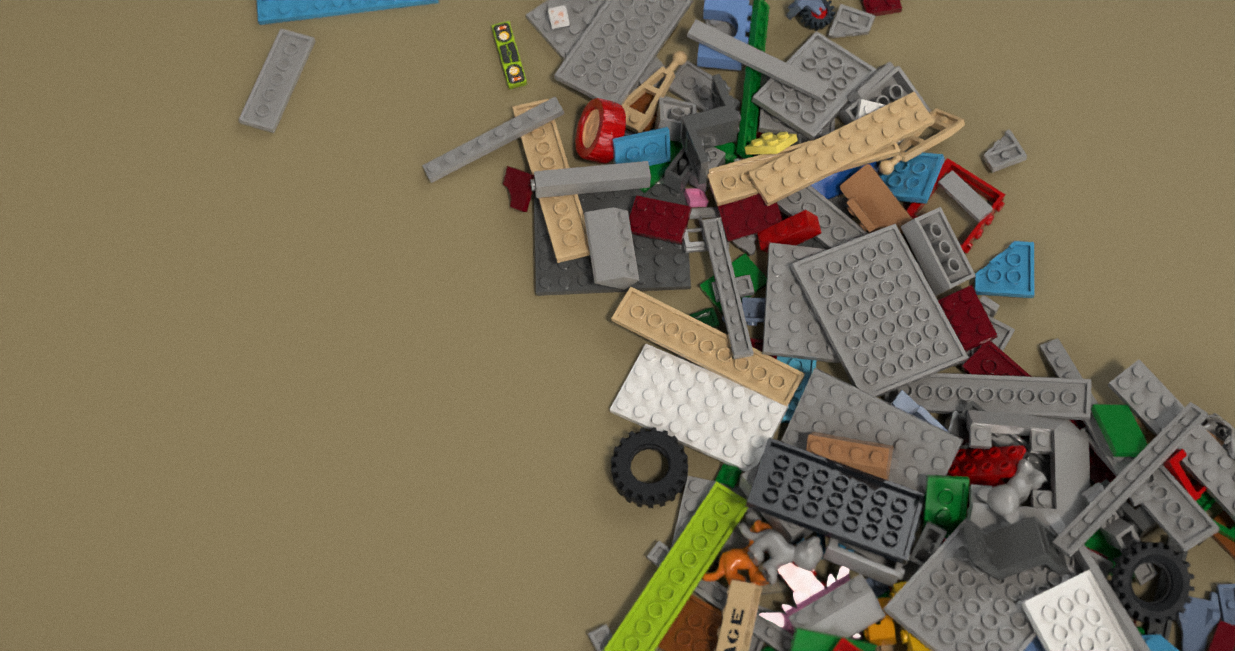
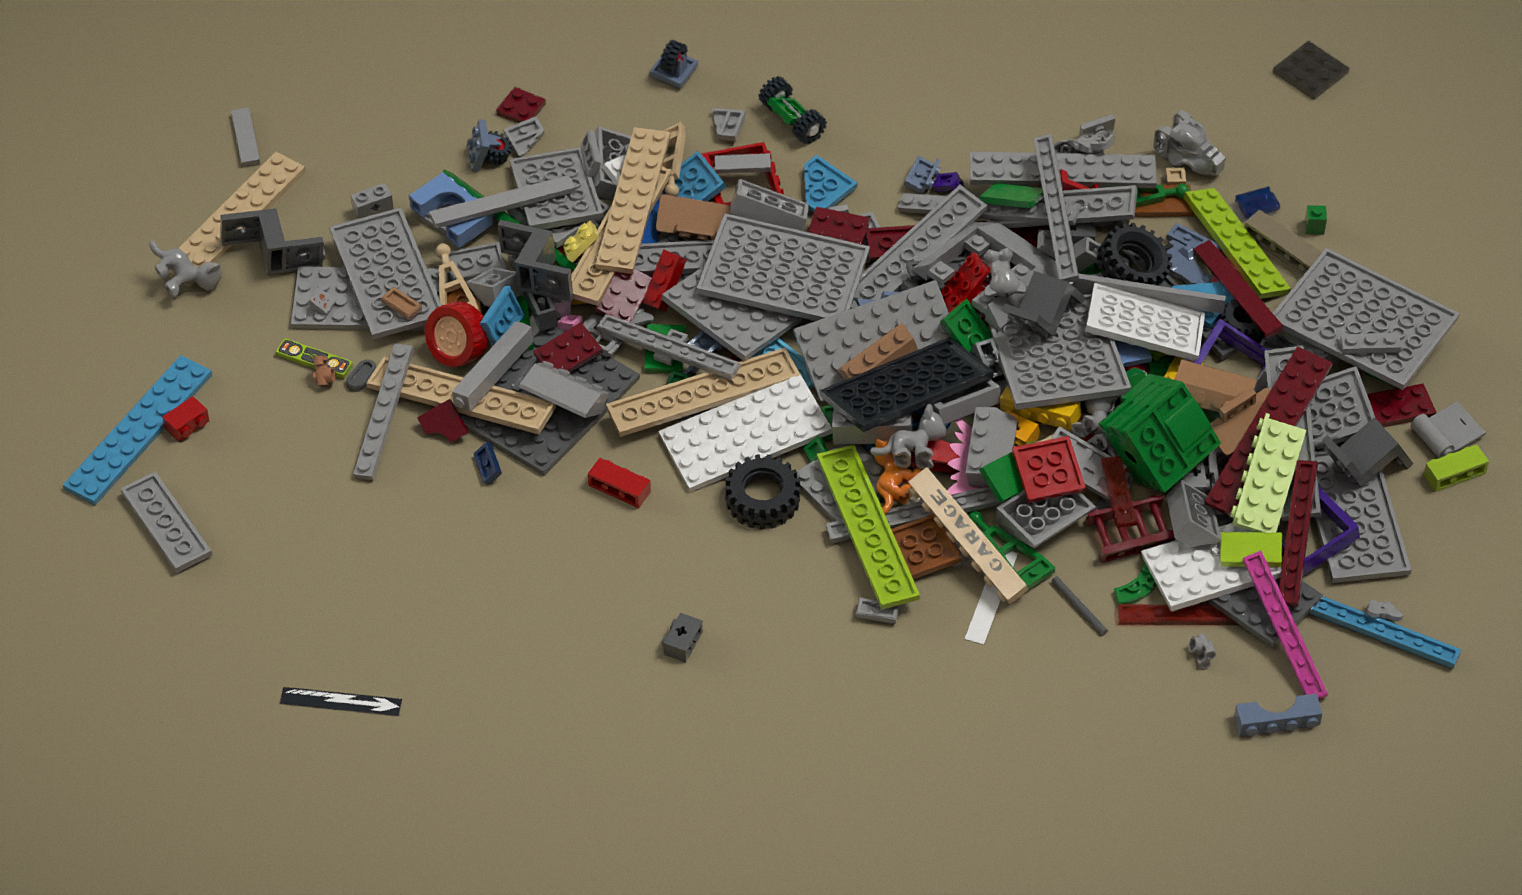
camera: 55 degrees left, 15 degrees down
(213, 321) = (341, 701): none -> black sticker
(378, 18) = (186, 419): none -> red brick
(467, 520) = (682, 637): none -> dark grey brick
(495, 70) = (323, 373): none -> nougat plate
(509, 247) = (487, 463): none -> dark blue plate
(520, 96) = (359, 376): none -> dark grey tile
(570, 354) = (619, 482): none -> red brick
(599, 70) = (401, 303): none -> medium nougat tile
(1023, 69) = (674, 65): none -> plate
(1060, 188) = (807, 124): none -> black plate
(1090, 337) = (921, 173): none -> sand blue bracket
(1103, 365) = (947, 182): none -> dark purple bracket

